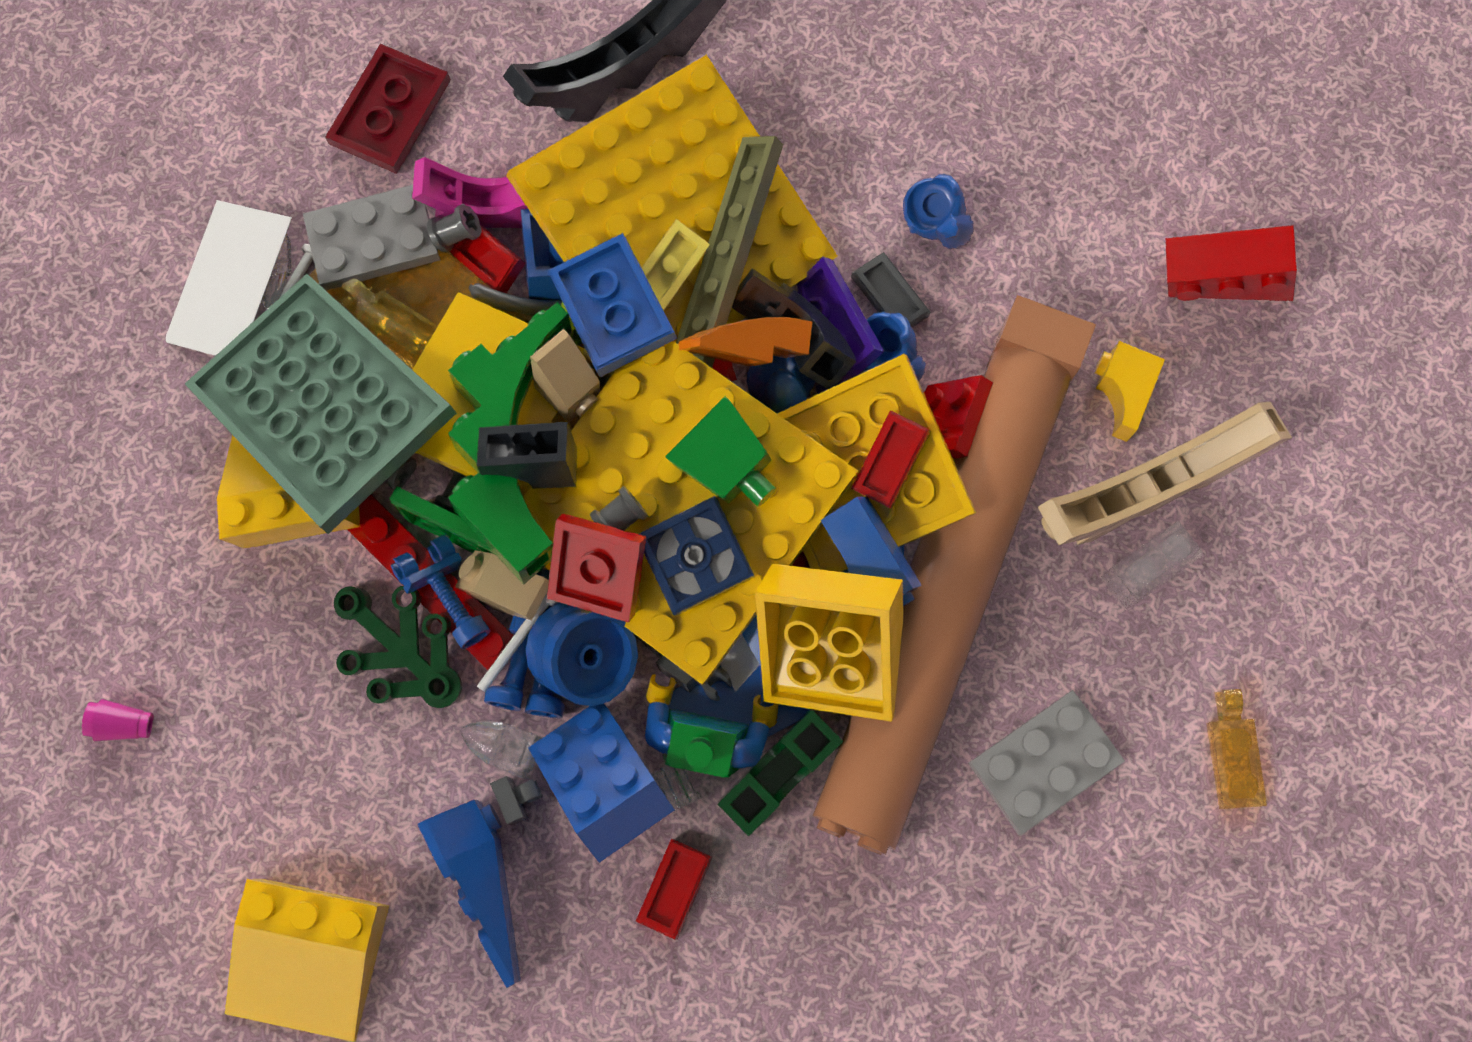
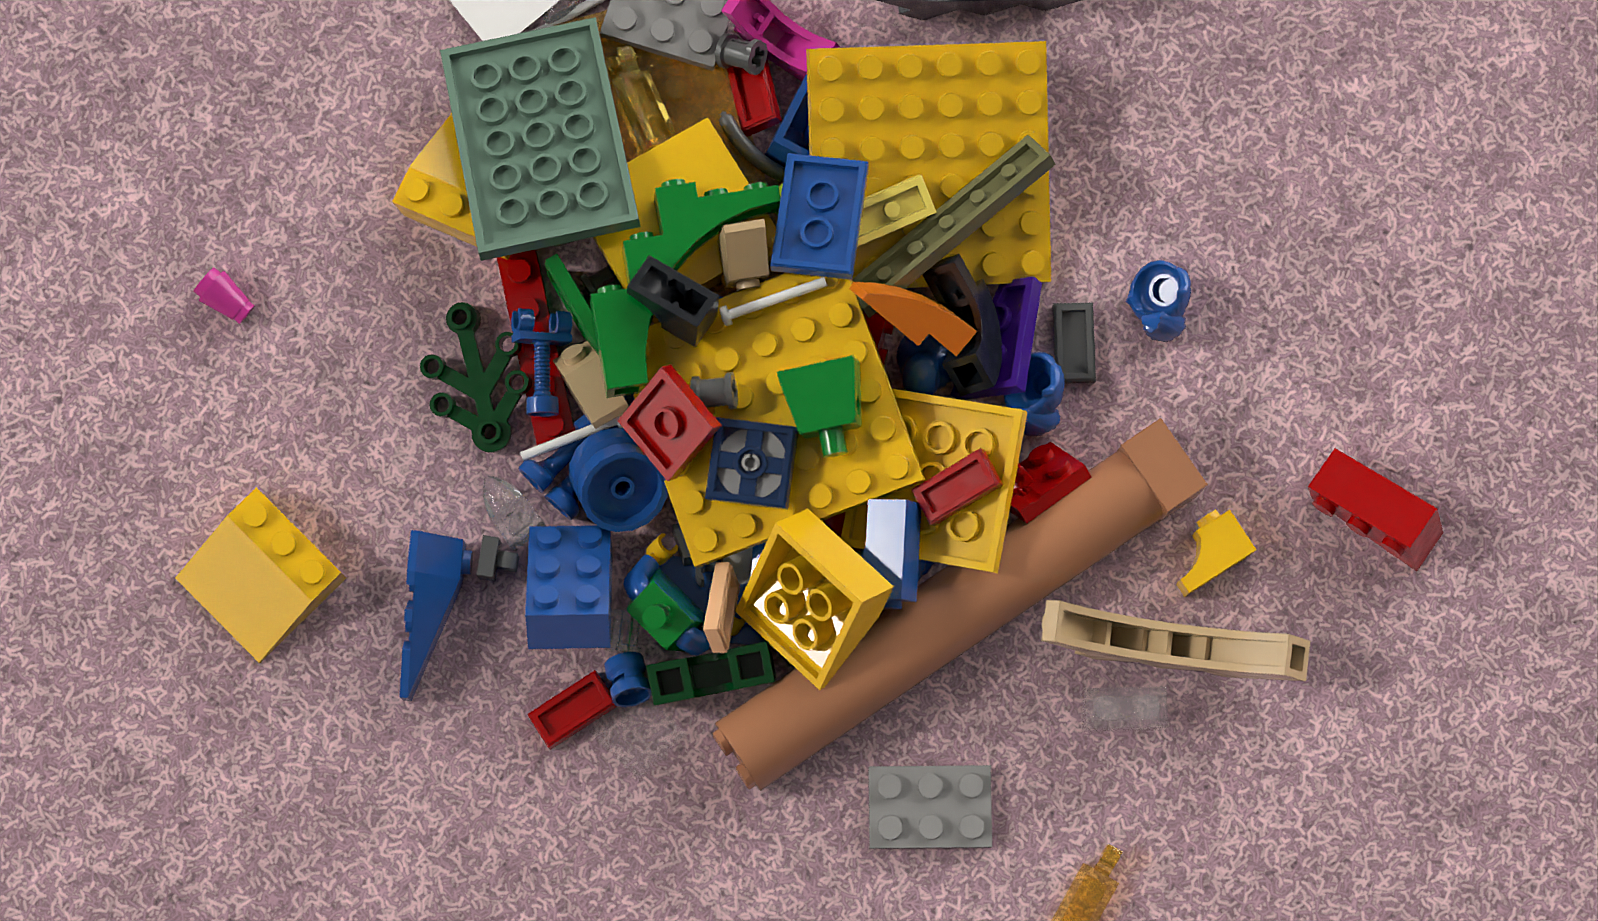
camera: 30 degrees right, 5 degrees up
(586, 439) = (770, 300): none -> white piece
(707, 827) = (628, 680): none -> blue wheel
(751, 706) = (721, 607): none -> light nougat tile

